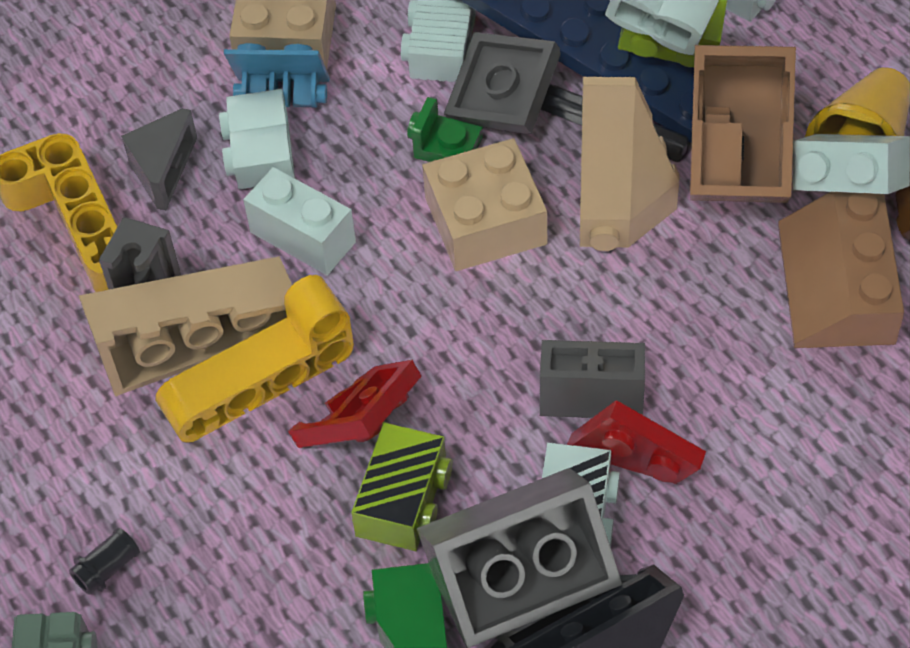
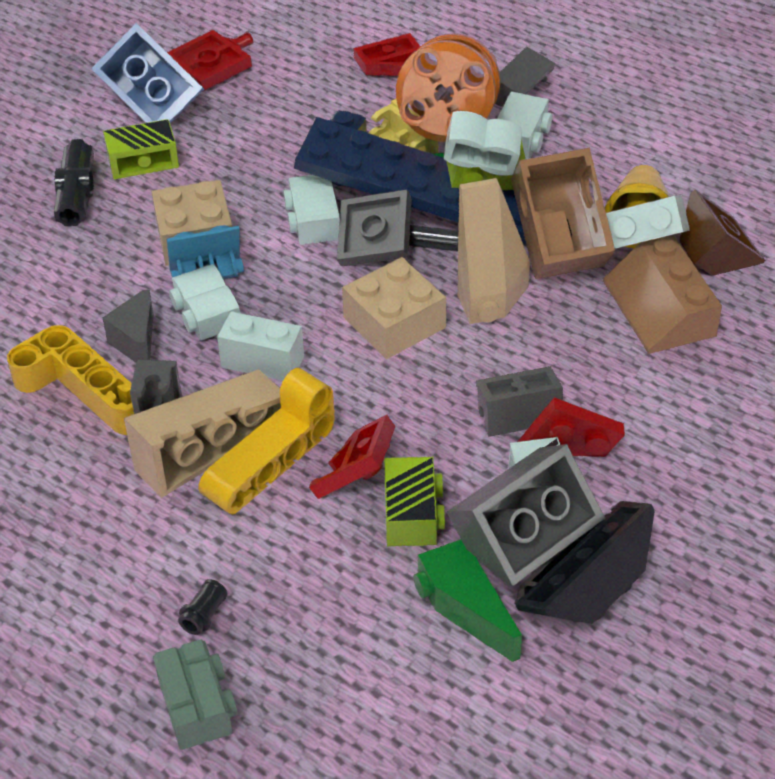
camera: 20 degrees left, 10 degrees down
(439, 136) = (338, 273): green bracket -> none

